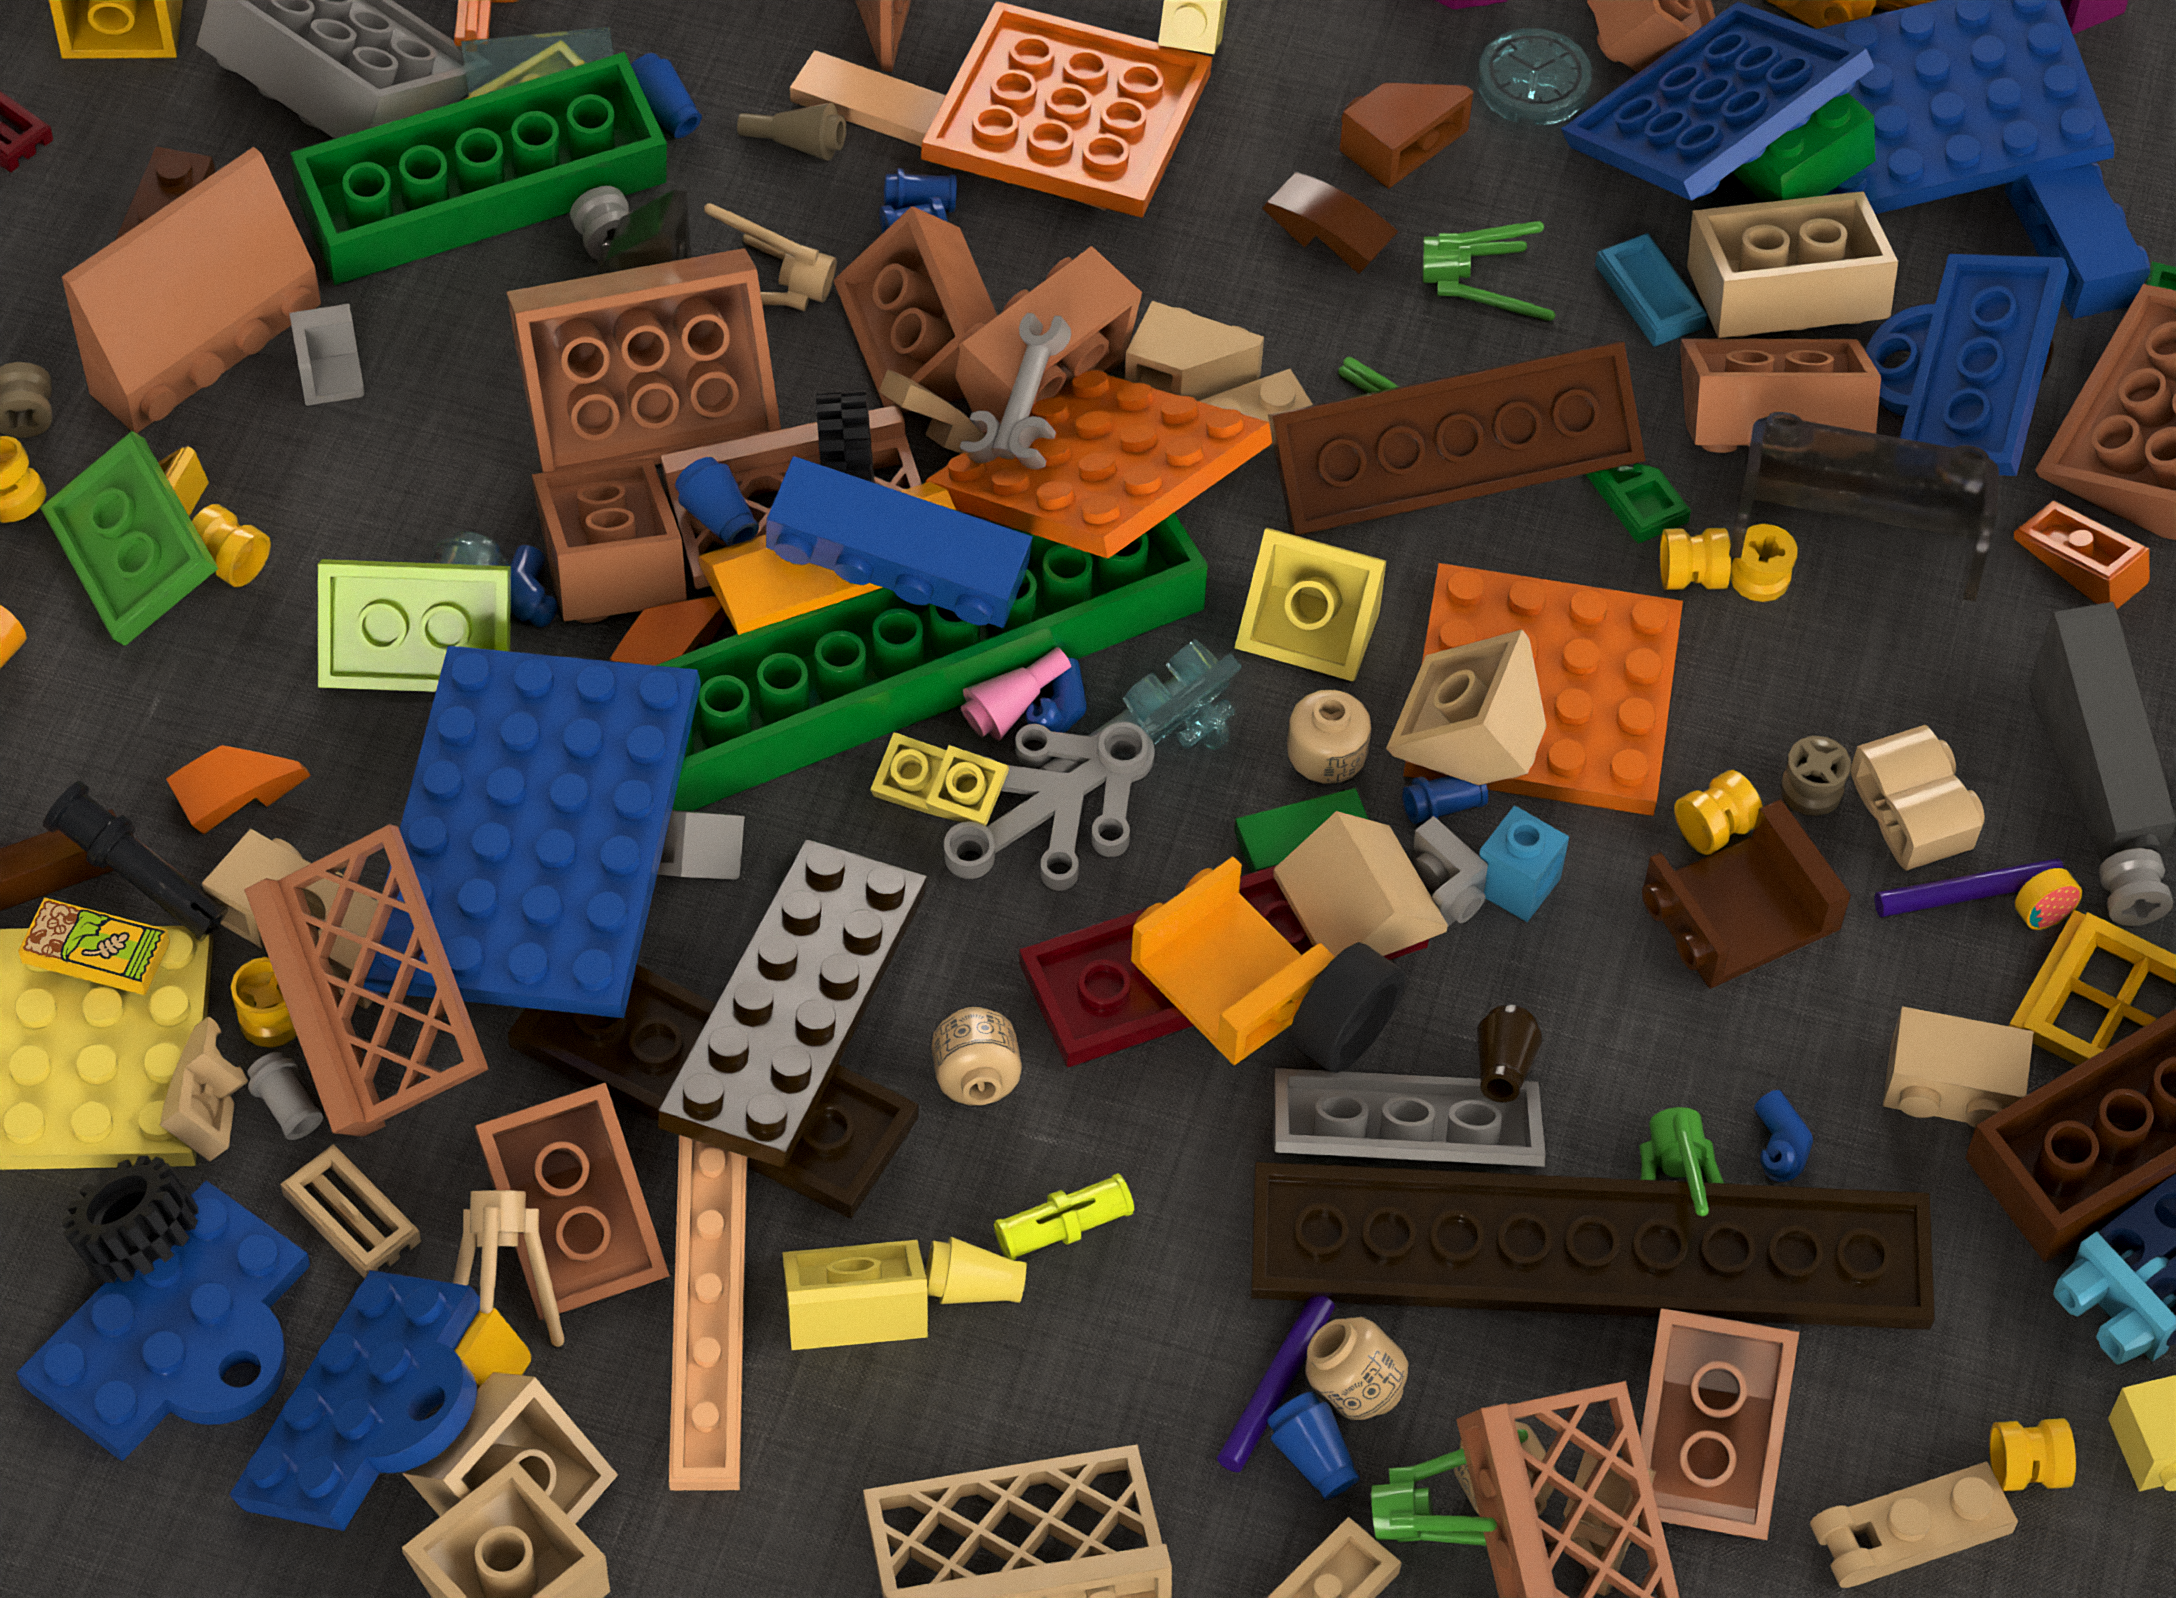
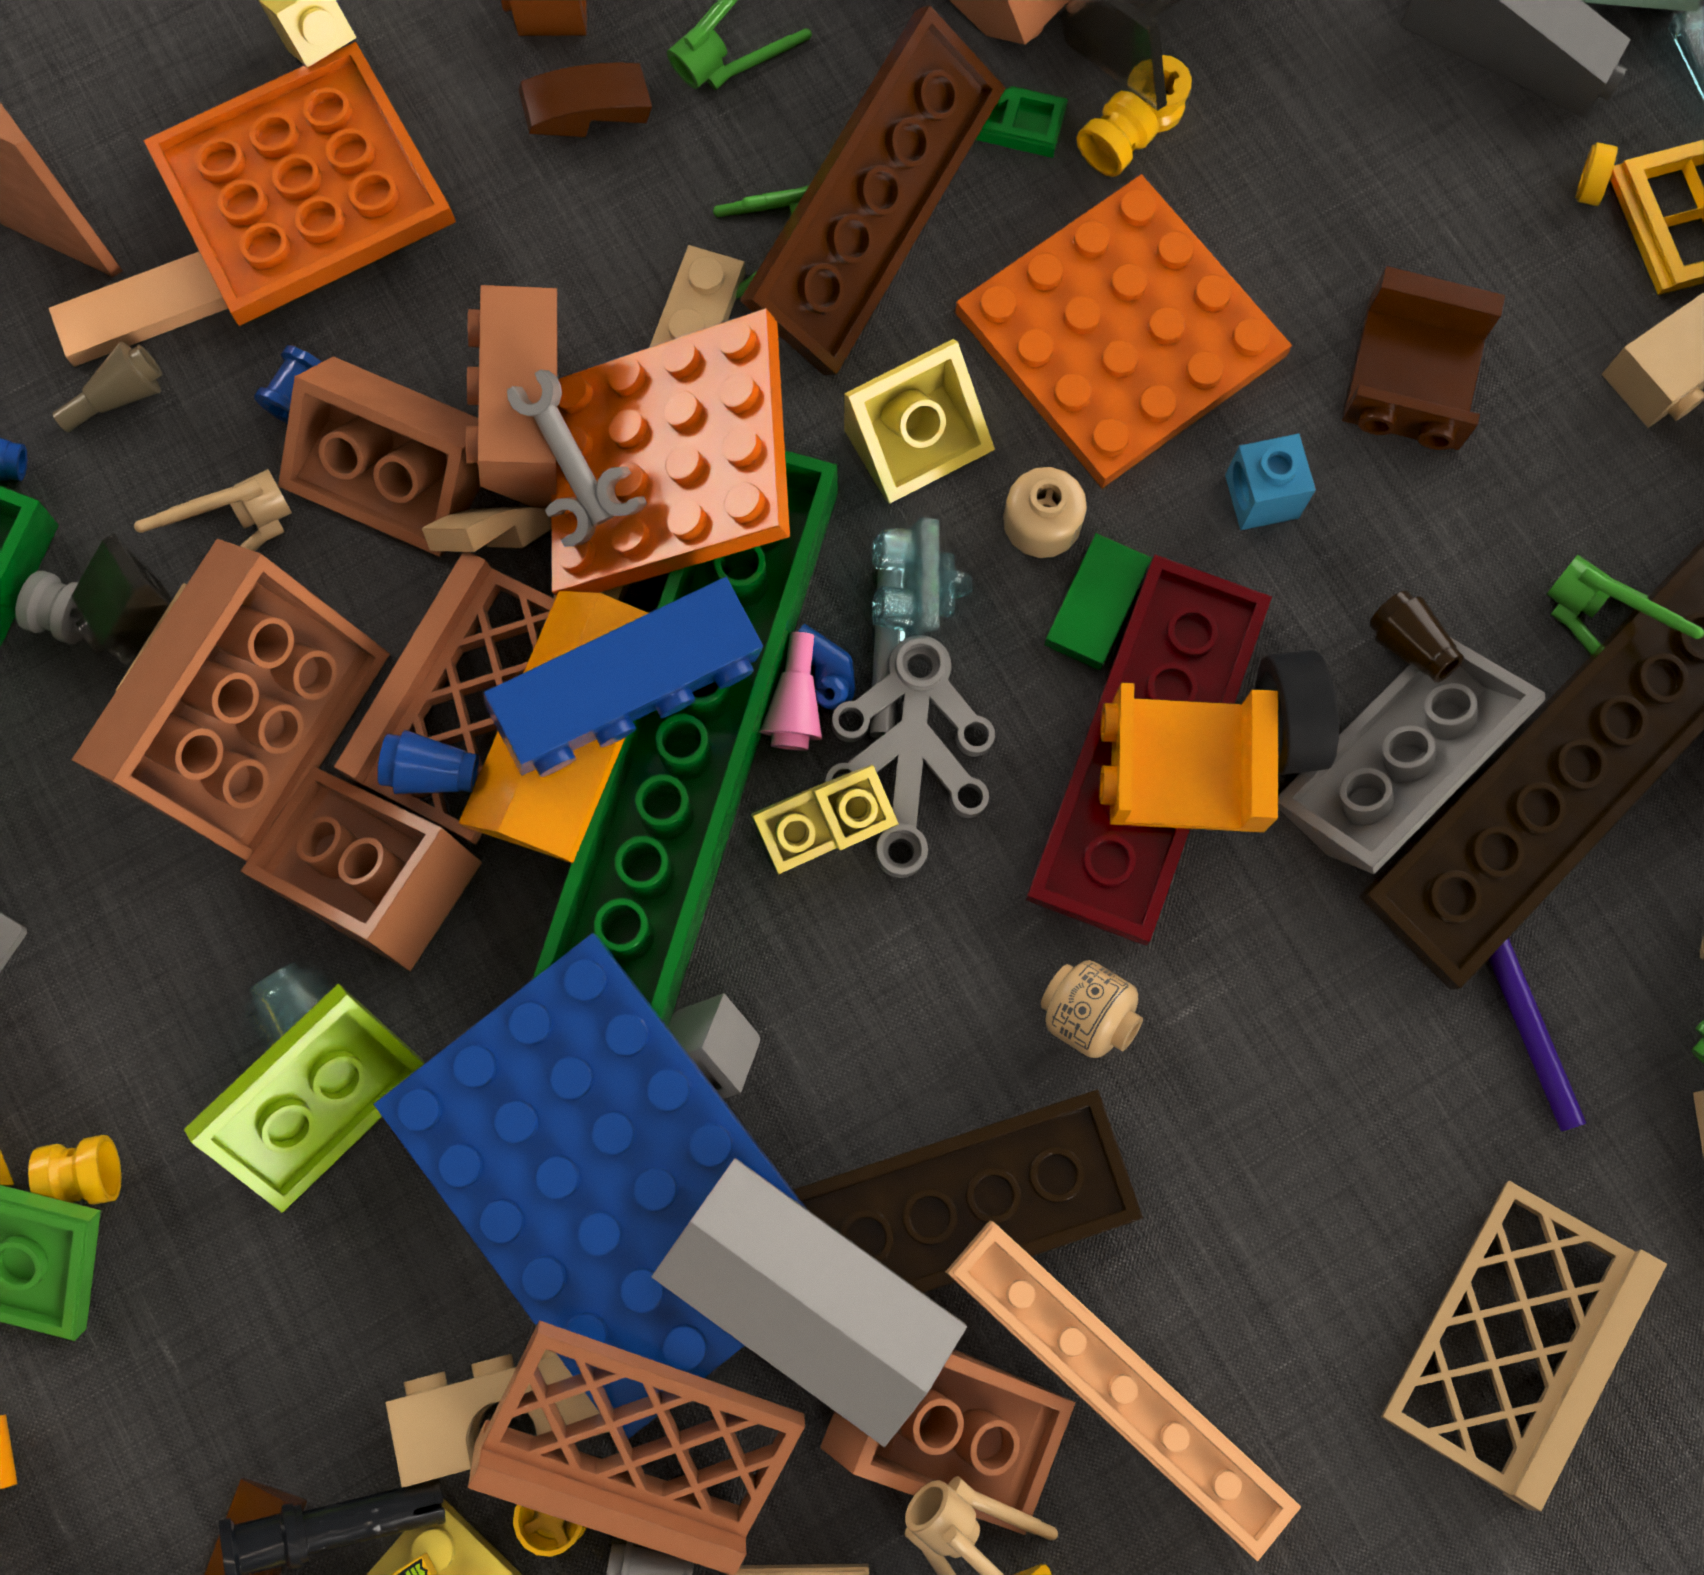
camera: 45 degrees left, 20 degrees up
(228, 780) = (307, 1365): orange slope -> none
(527, 594) = (356, 975): blue arm -> none
(570, 992) = (810, 1302): none -> light grey slope
(670, 631) = (498, 906): orange slope -> none
(793, 1004) = (934, 1110): plate -> none
(845, 433) = (481, 629): black tyre -> none
(856, 1294) = (1211, 1273): light yellow slope -> none
(912, 190) = (262, 353): blue pin -> none
(971, 1274) = (1268, 1179): light yellow cone -> none
(1064, 1217) = (1279, 1065): neon yellow pin -> none
(1191, 353) = (611, 302): tan slope -> none
(1314, 1444) = (1615, 1057): blue cone -> none
(1356, 1368) = (1594, 977): tan head -> none
(1357, 886) = (1207, 620): tan slope -> none
(1441, 797) = (1152, 491): blue pin -> none
(1449, 870) = (1228, 531): light grey bracket -> none
(1474, 711) = (1129, 397): tan slope -> none
(1718, 812) = (1341, 310): yellow wheel -> none
(1790, 1138) = (1634, 513): blue arm -> none
(1818, 760) = (1376, 213): dark tan wheel -> none
(1917, 797) = (1443, 178): tan brick -> none
(1959, 888) = (1533, 213): dark purple bar -> none
(2135, 887) = (1637, 112): light grey wheel -> none

